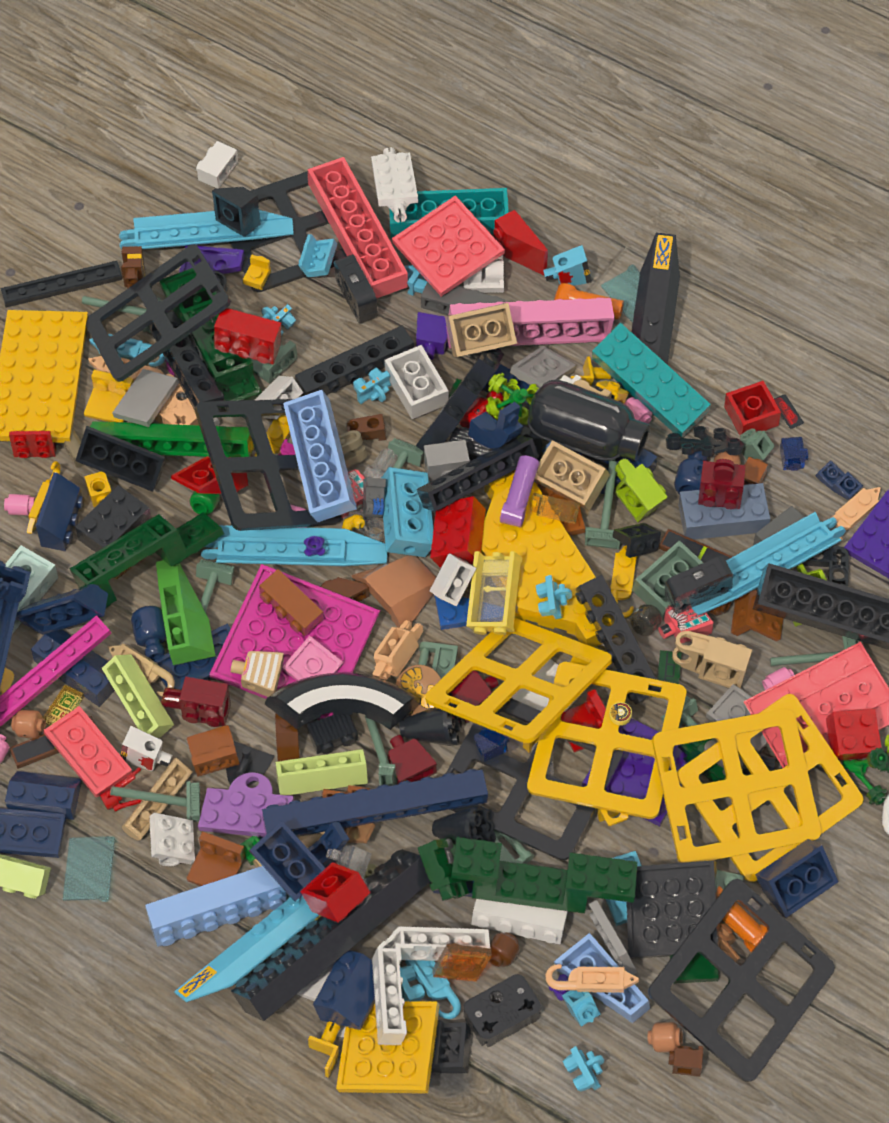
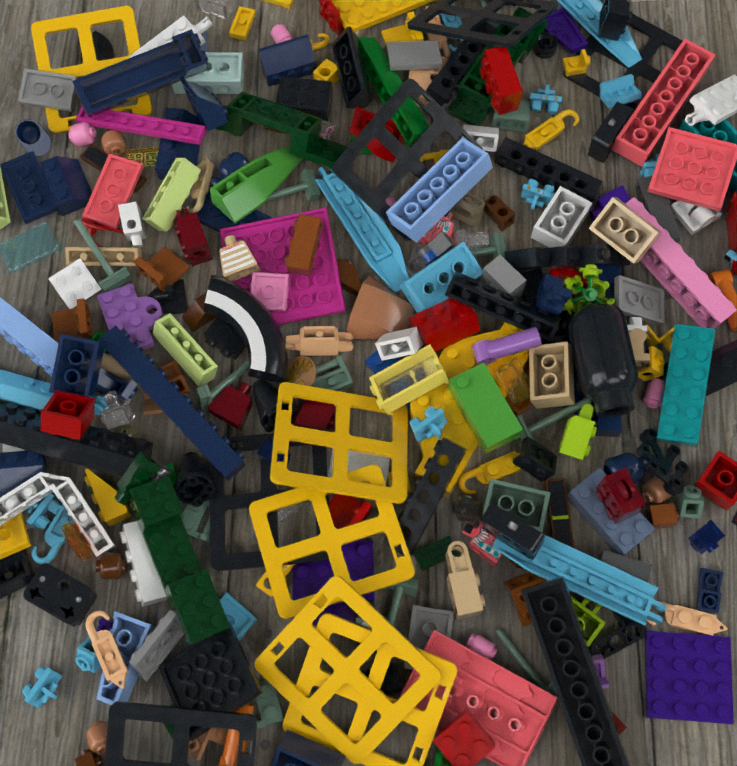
camera: 60 degrees right, 10 degrees up
(310, 337) = (549, 130): none -> yellow plate
(314, 541) = (369, 230): dark purple plate -> none
(353, 521) = (409, 248): yellow arm -> none
(431, 916) = (103, 495): none -> yellow slope
(567, 543) = (484, 408): none -> bright green brick
(620, 713) = (356, 537): tile -> none

